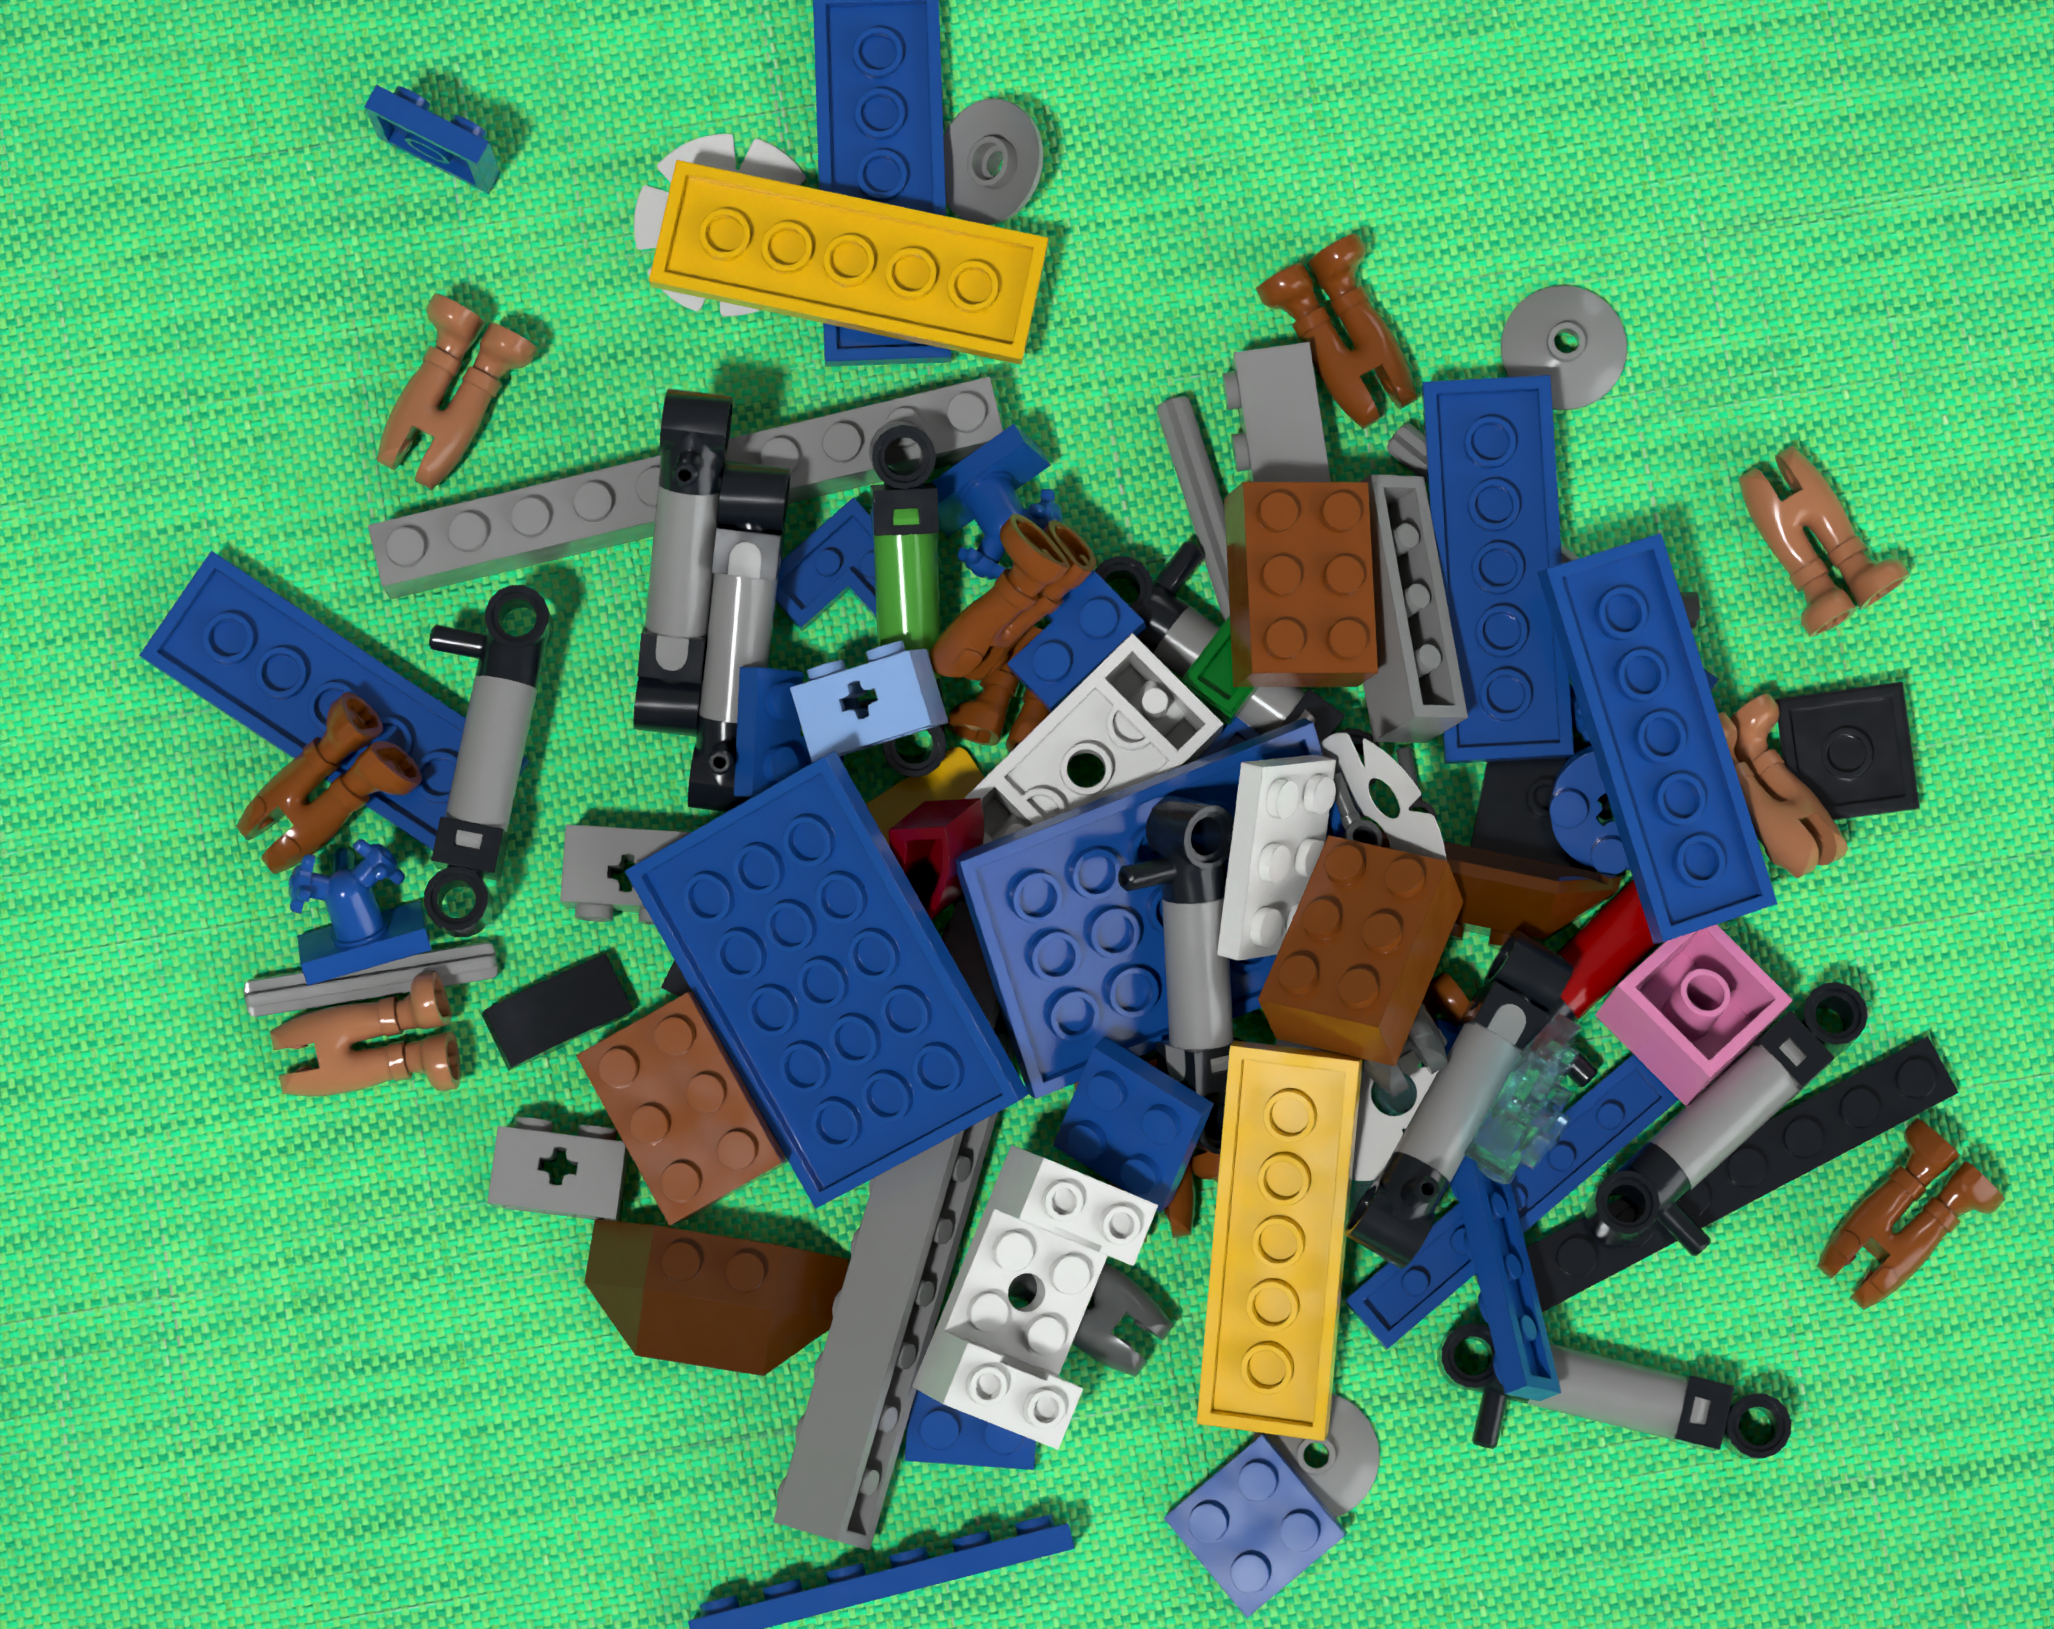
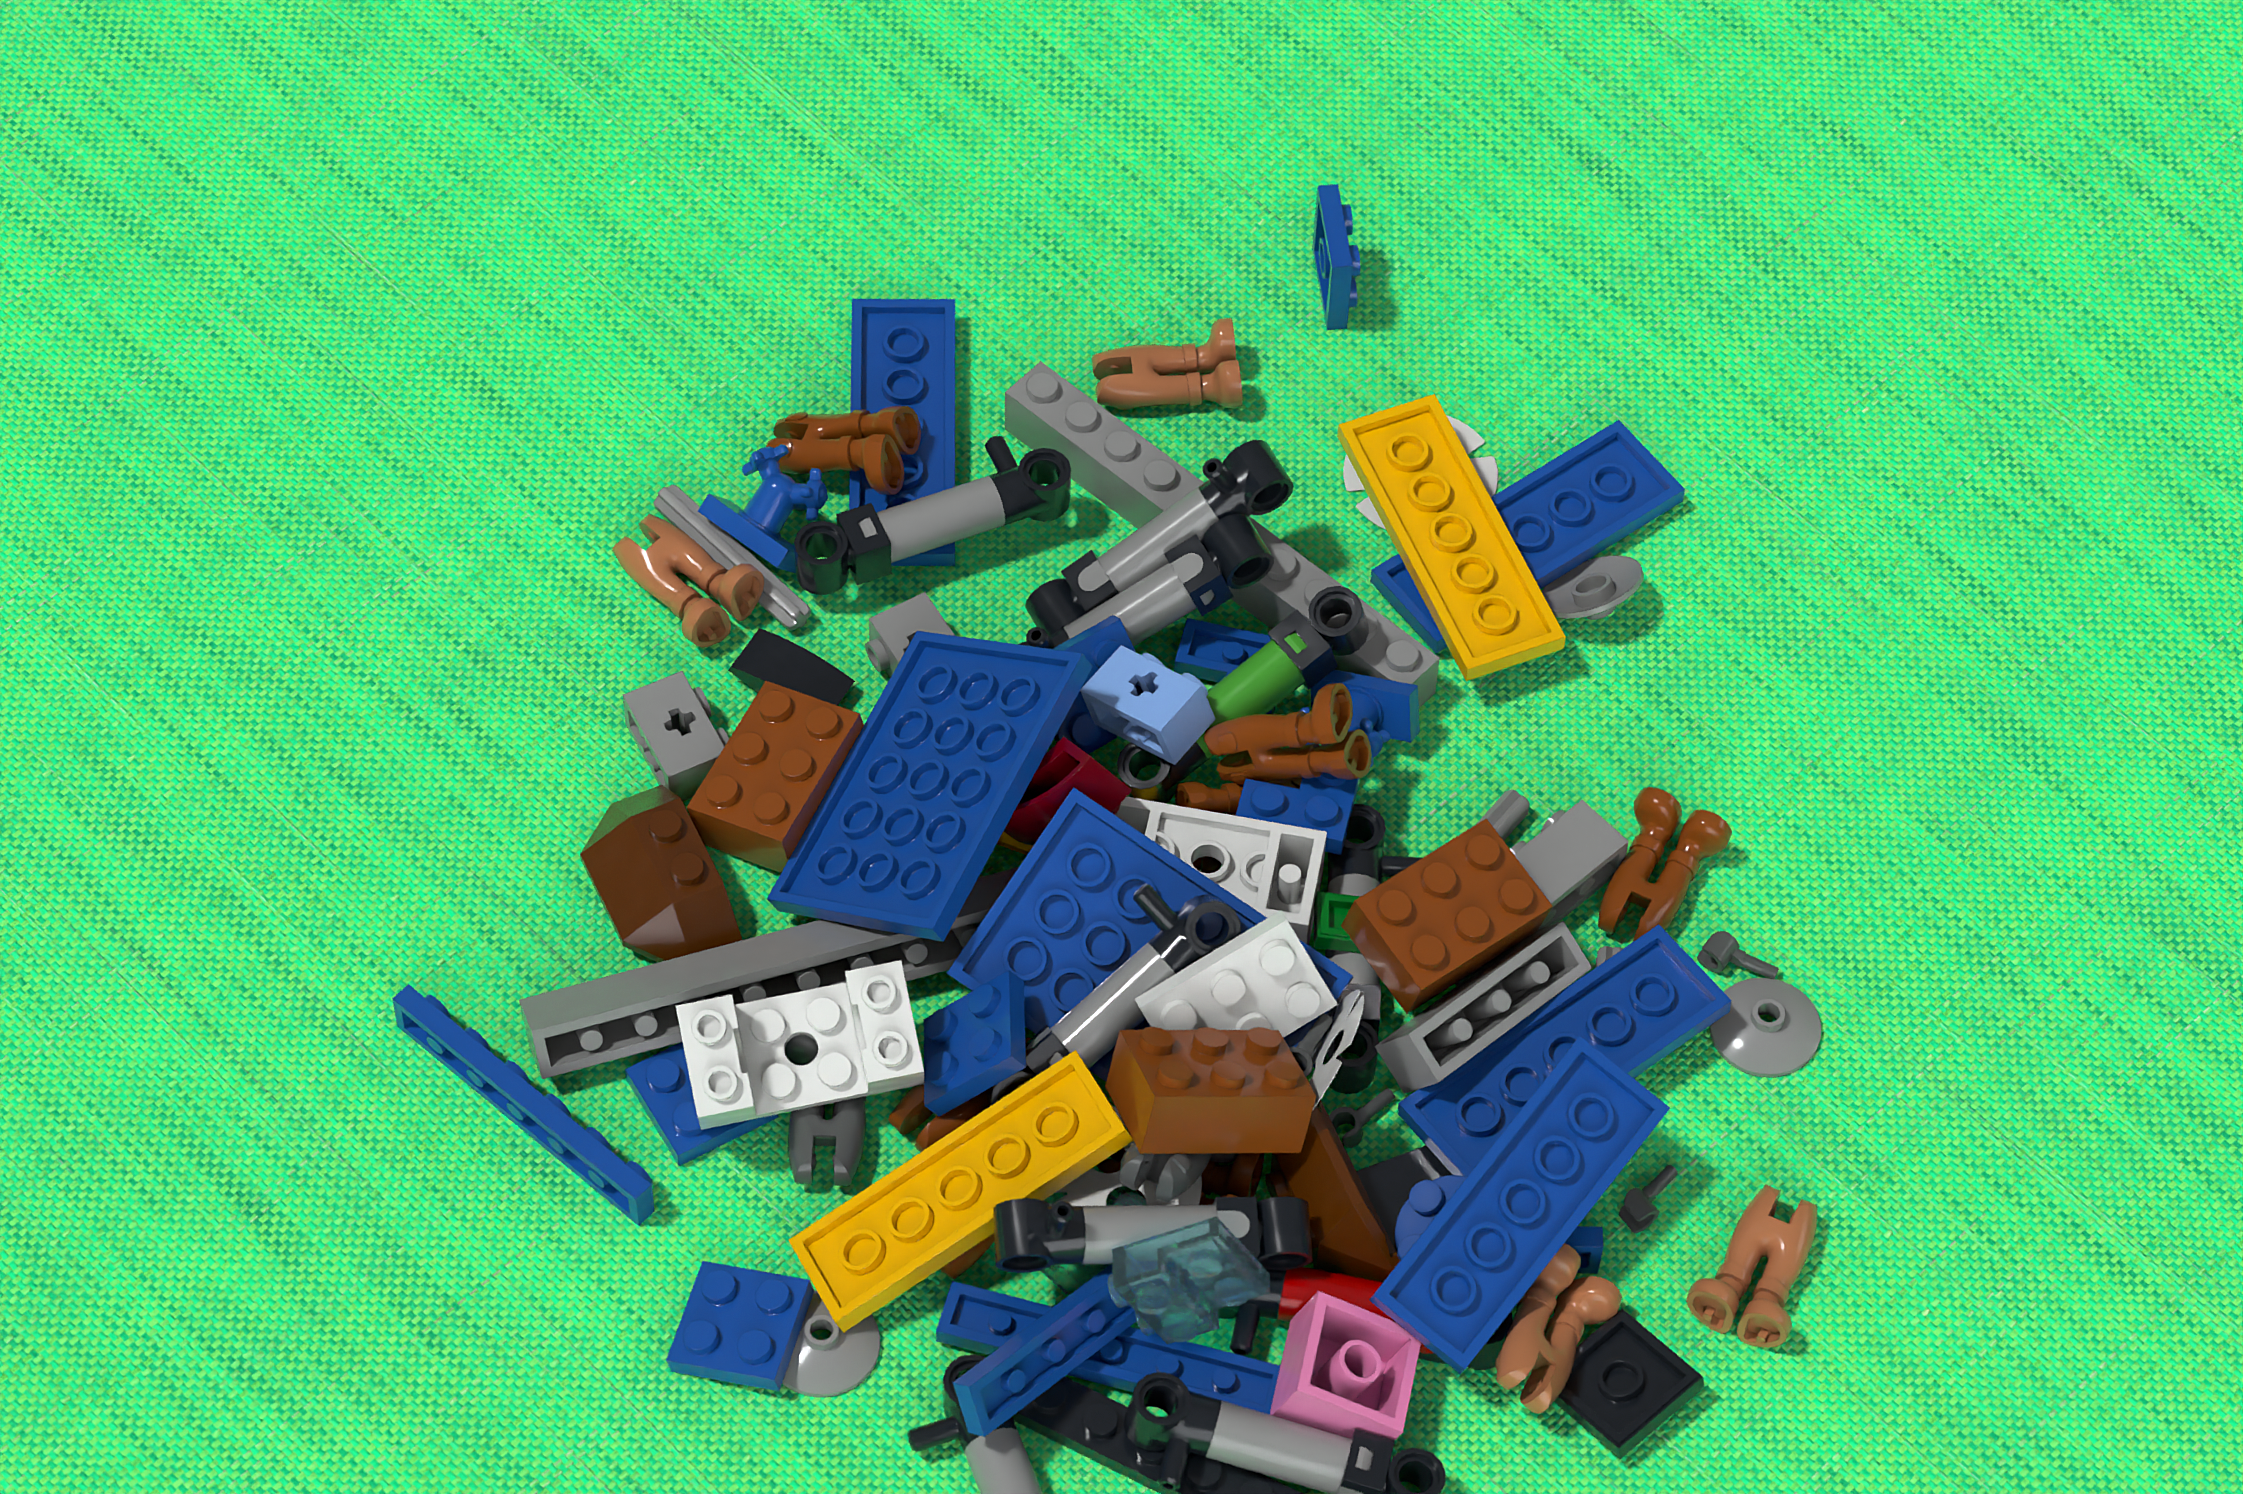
camera: 55 degrees right, 25 degrees down
(1462, 332) = (1724, 948): none -> dark grey hand

